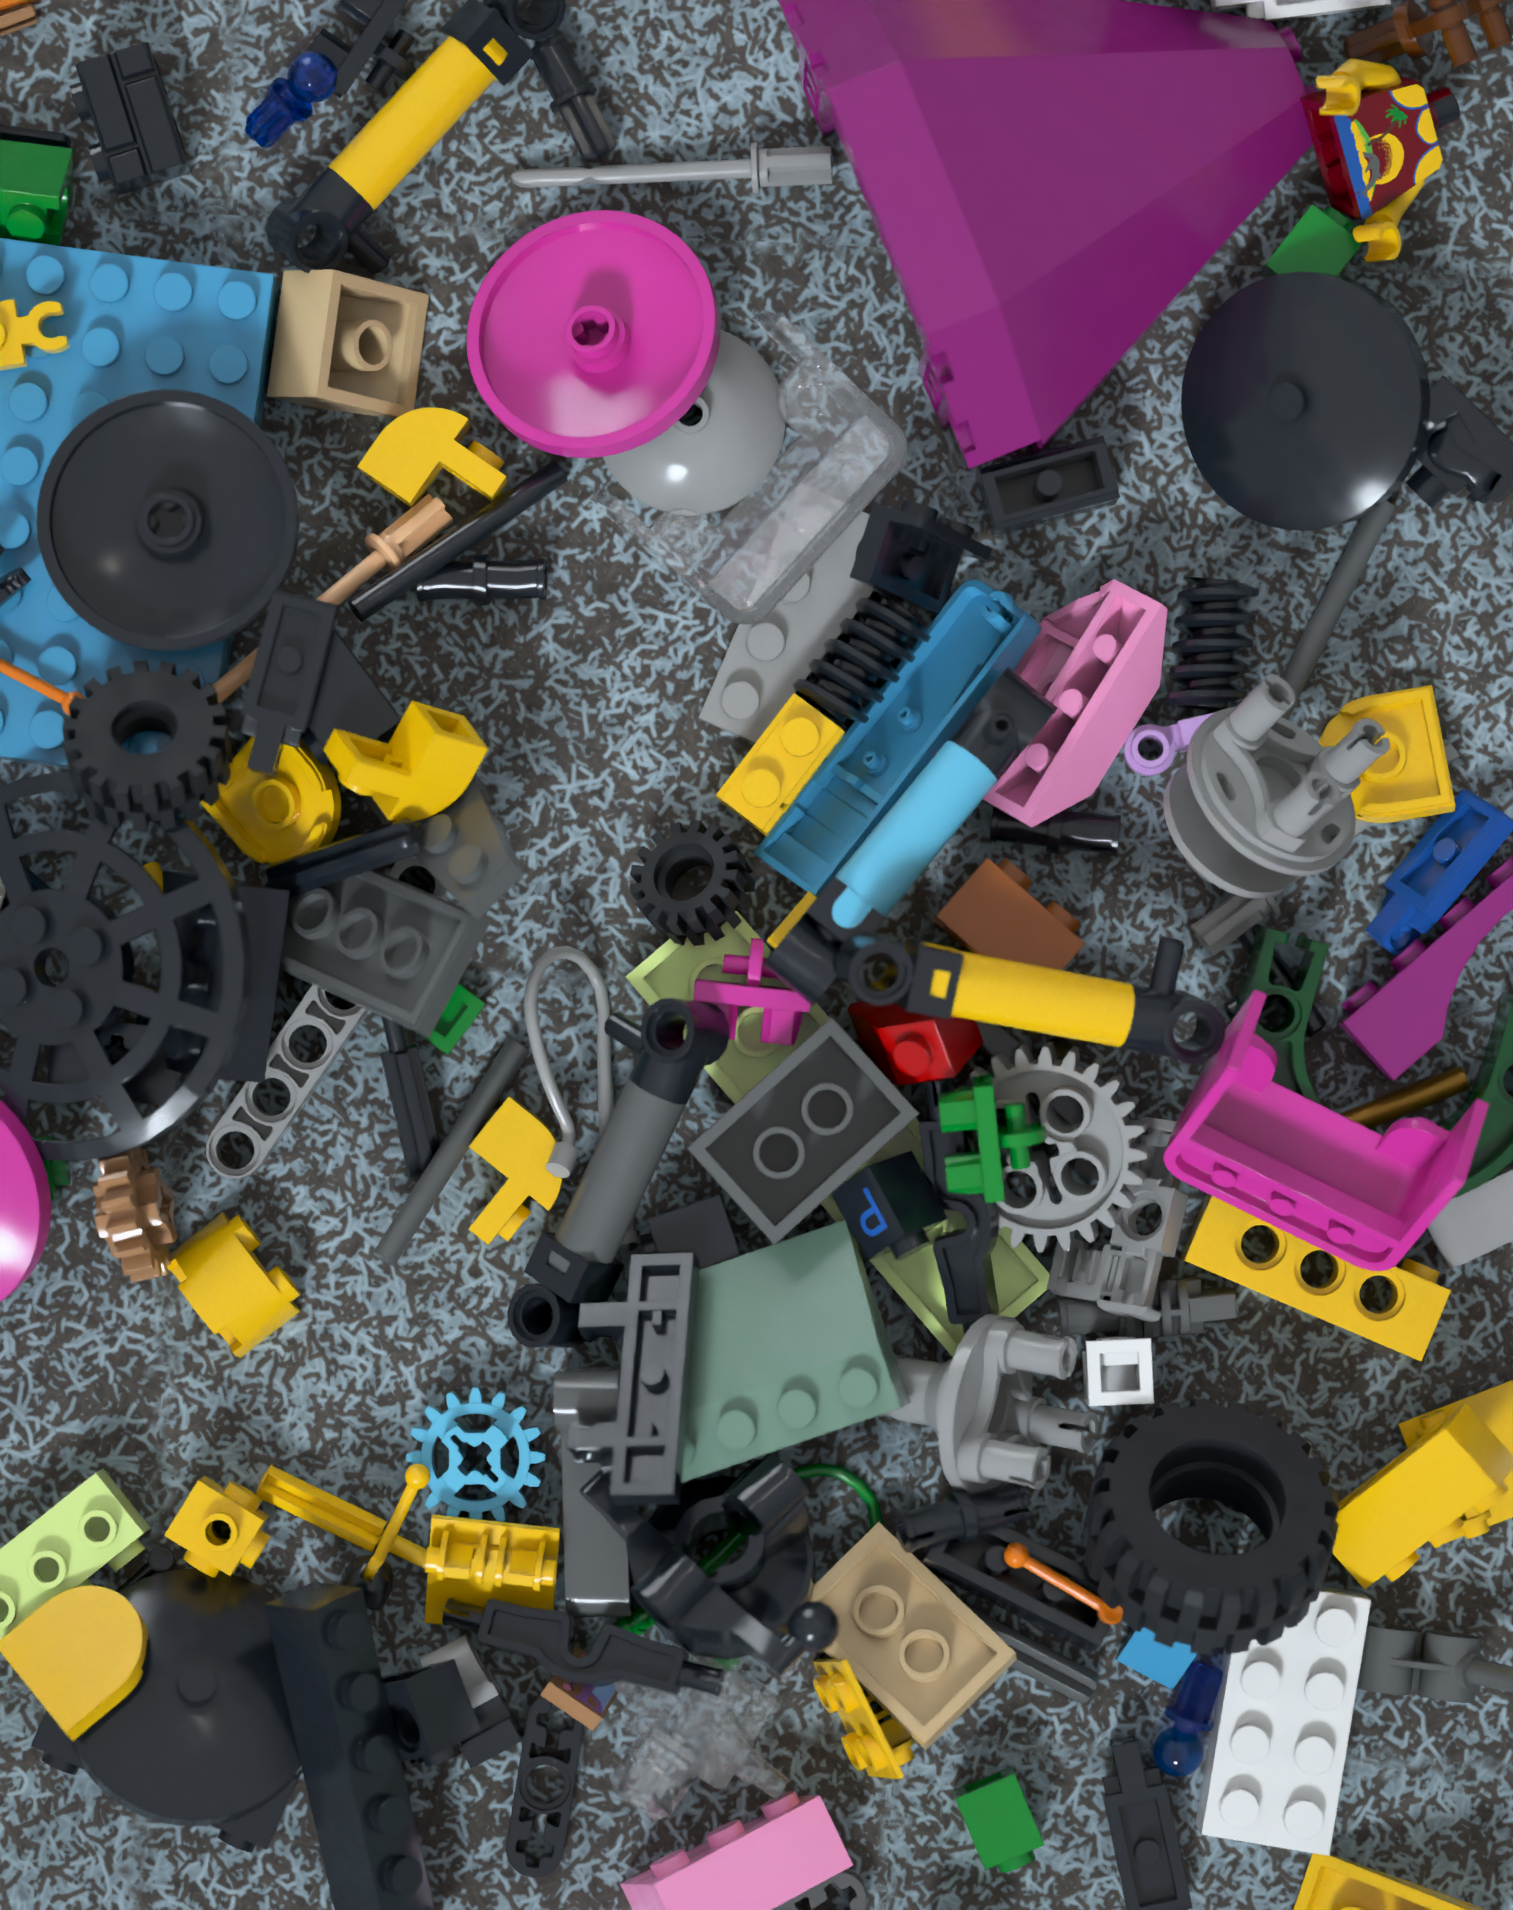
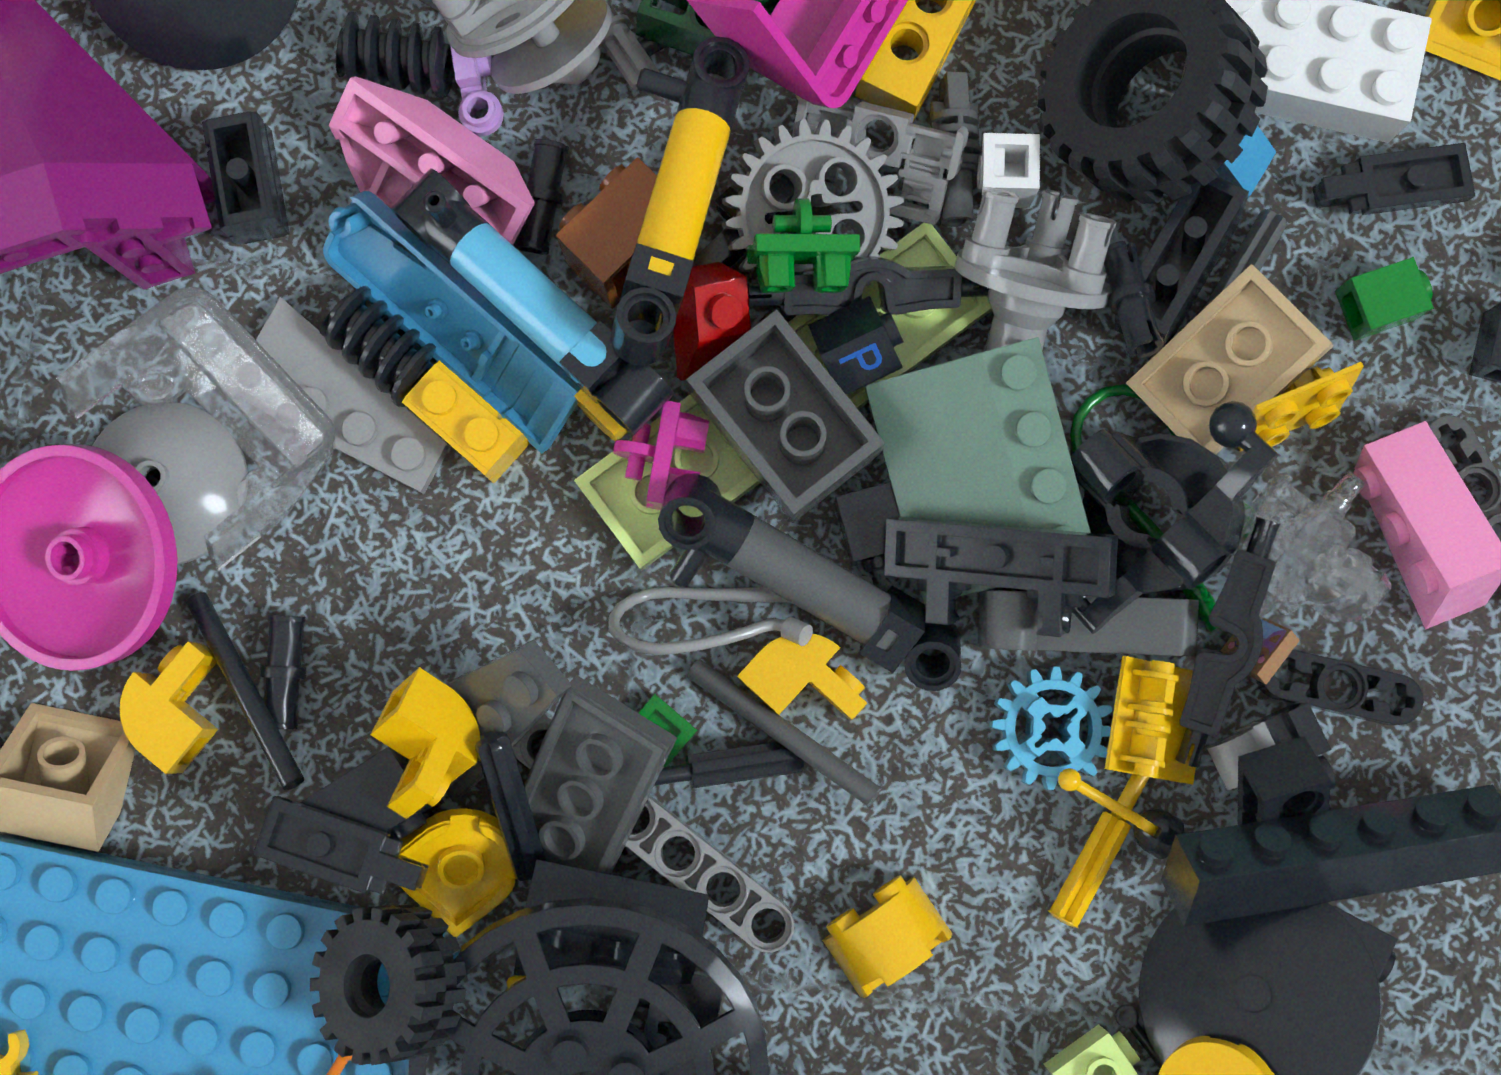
camera: 80 degrees left, 5 degrees down
(135, 1214) = (820, 1021): medium nougat gear -> none
(168, 520) = (182, 950): black dish -> none
(195, 1527) = (1084, 963): yellow brick -> none
(387, 552) = (246, 754): light nougat piece -> none
(675, 857) = (536, 511): black tyre -> none
(914, 554) = (288, 293): black bracket -> none
(1017, 1556) = (1168, 255): orange hinge -> none
(1179, 1748) = (1325, 148): clear blue axle -> none

